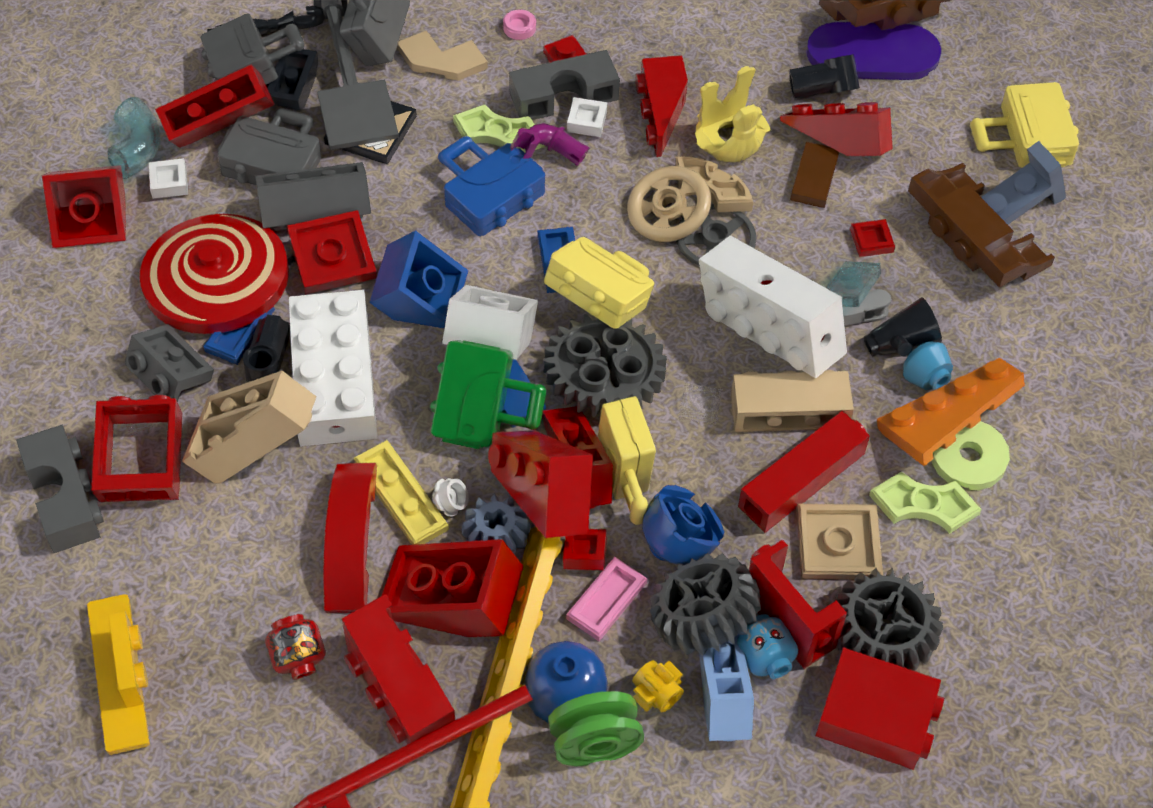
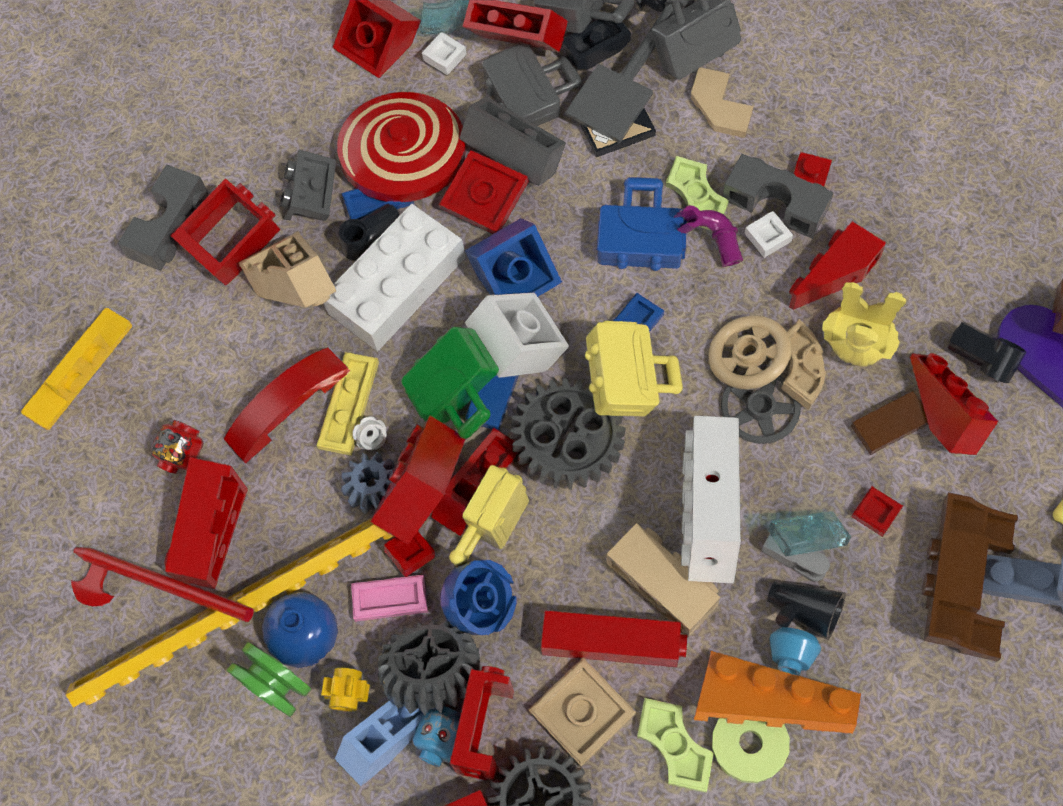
camera: 55 degrees right, 10 degrees up
(455, 586) = (303, 498): red slope -> none
(519, 24) = (804, 120): bright pink tile -> none

